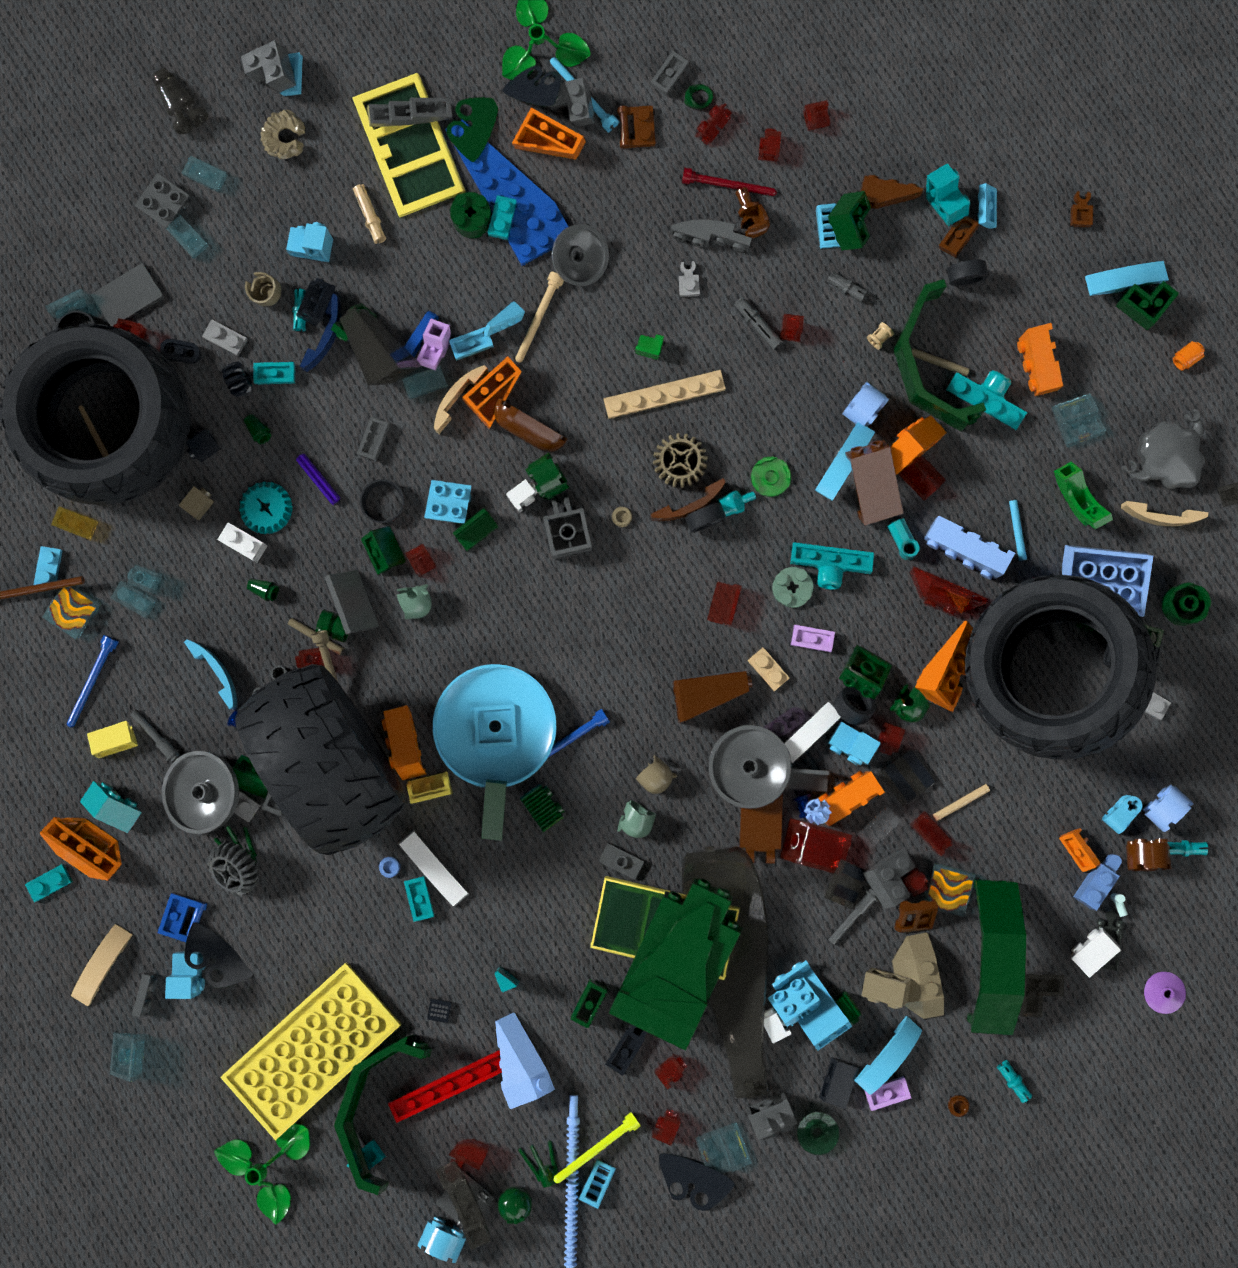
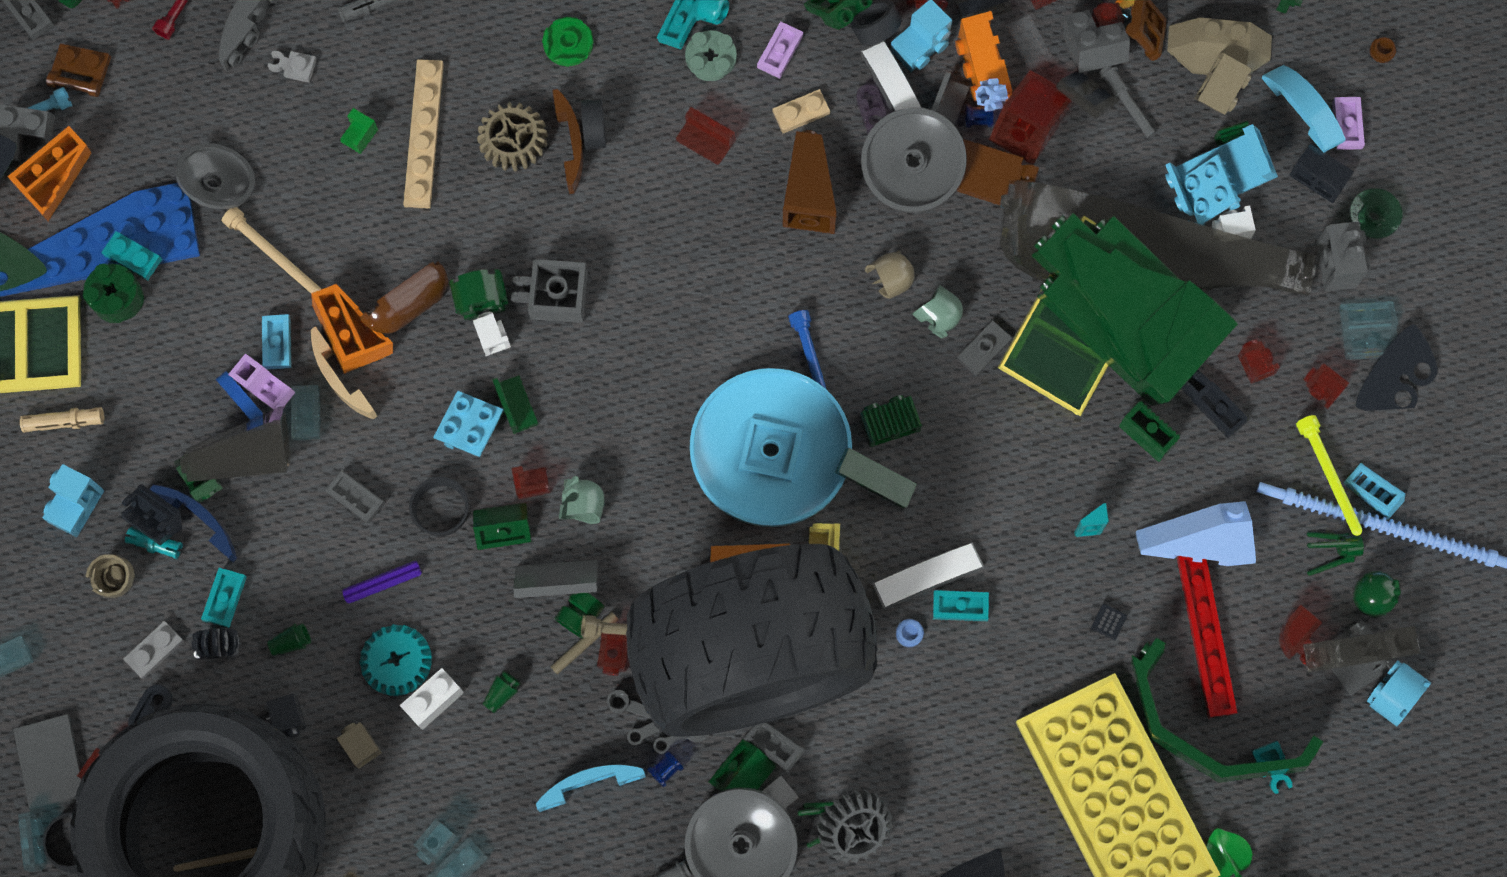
camera: 75 degrees left, 10 degrees down
(507, 317) = (261, 286): medium azure slope -> none
(621, 516) = (558, 226): dark tan tile -> none
(734, 503) = (584, 88): teal piece -> none

